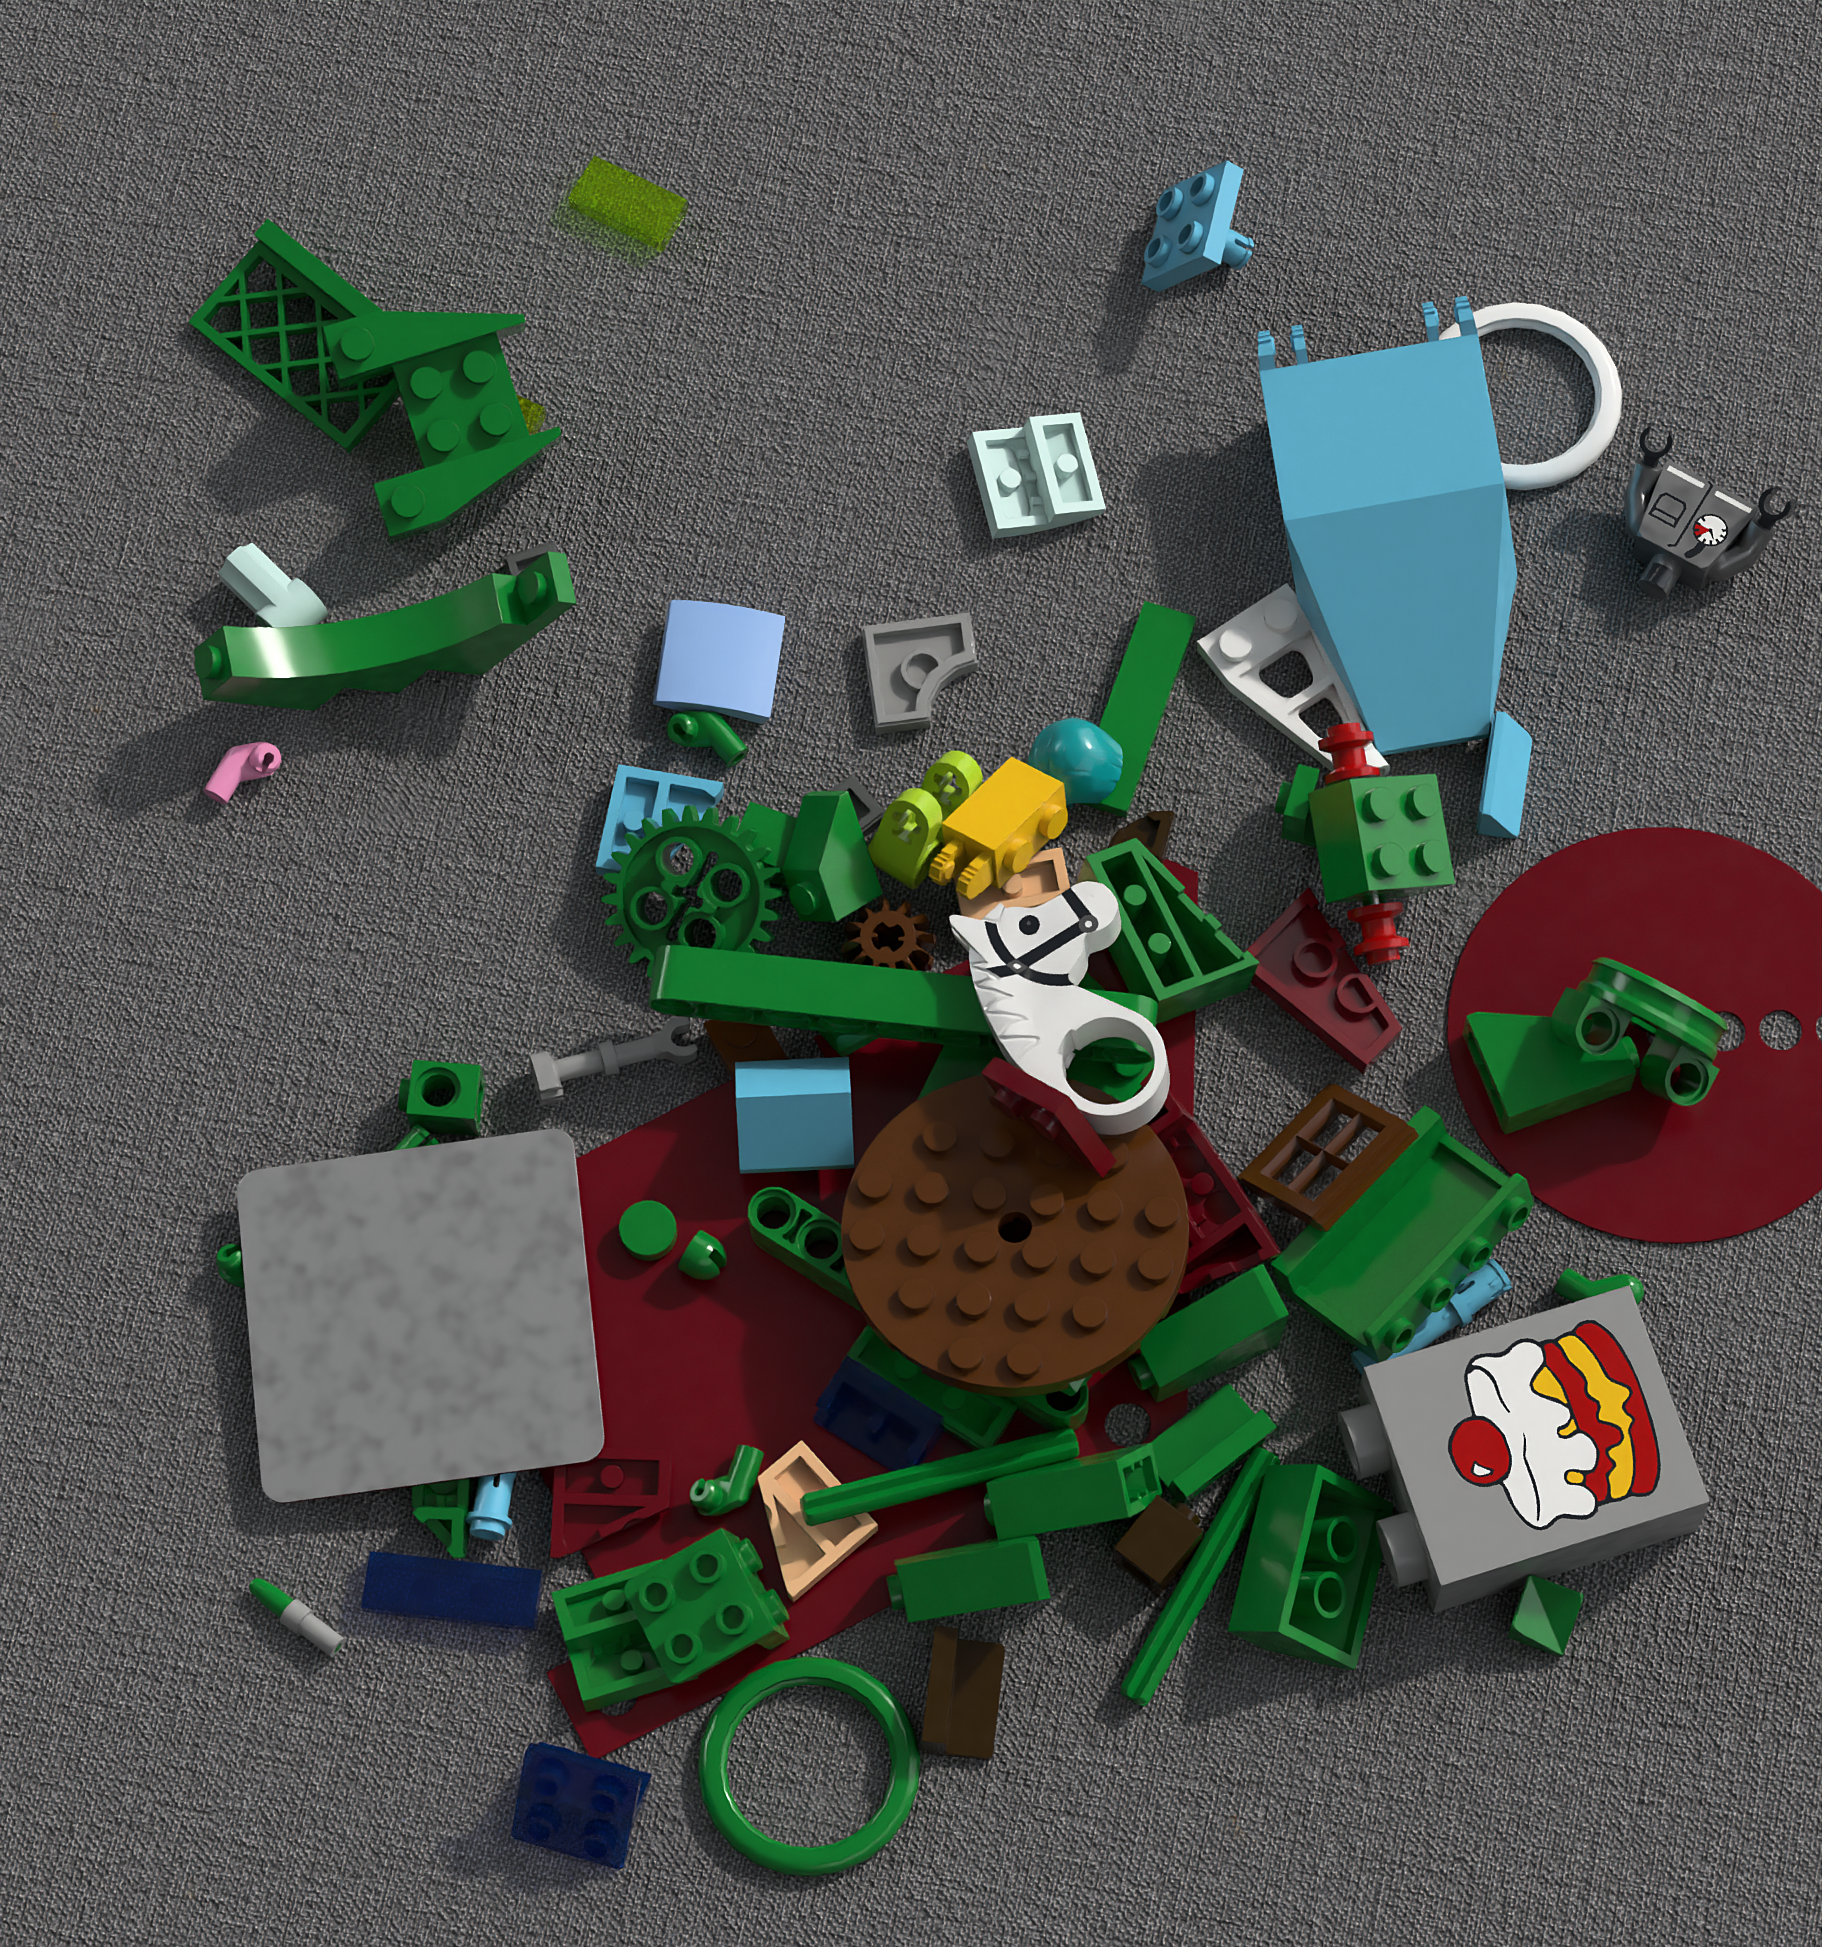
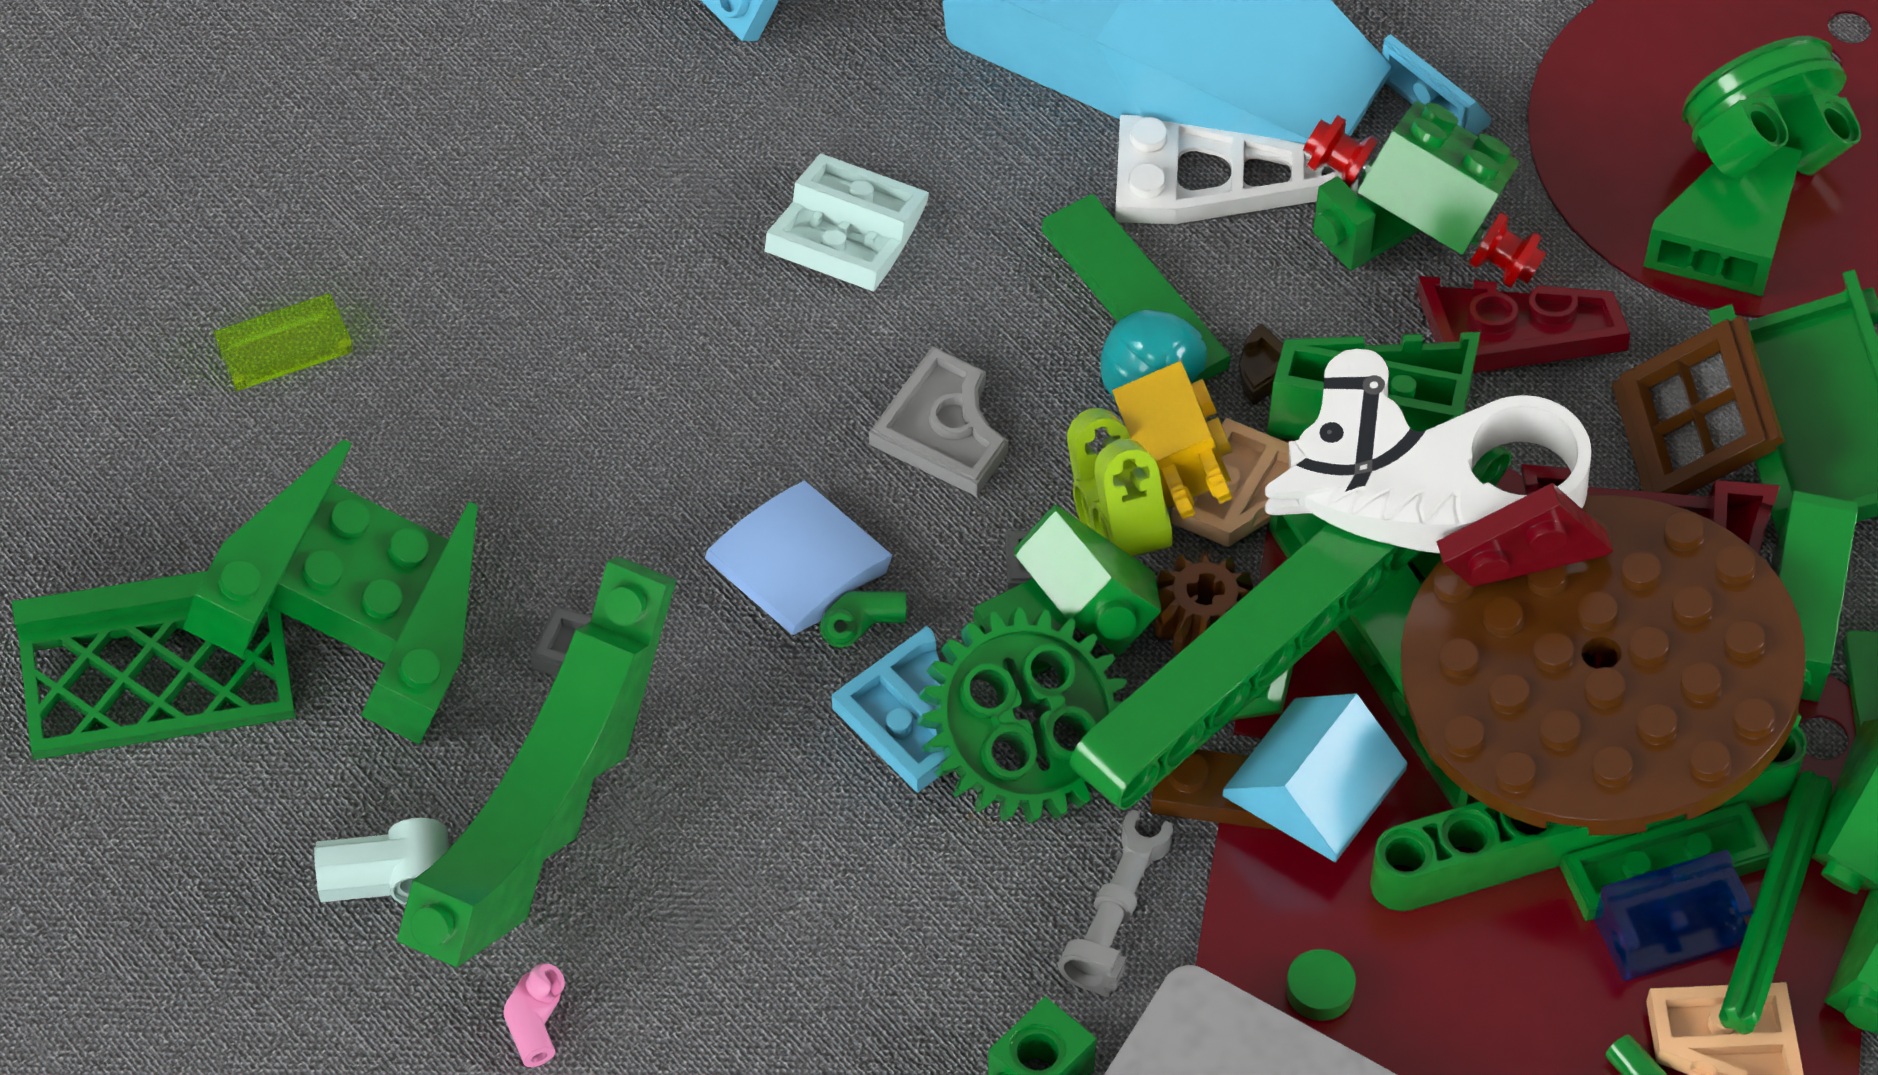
camera: 55 degrees left, 15 degrees down
(703, 1257) = (1389, 954): green hinge -> none

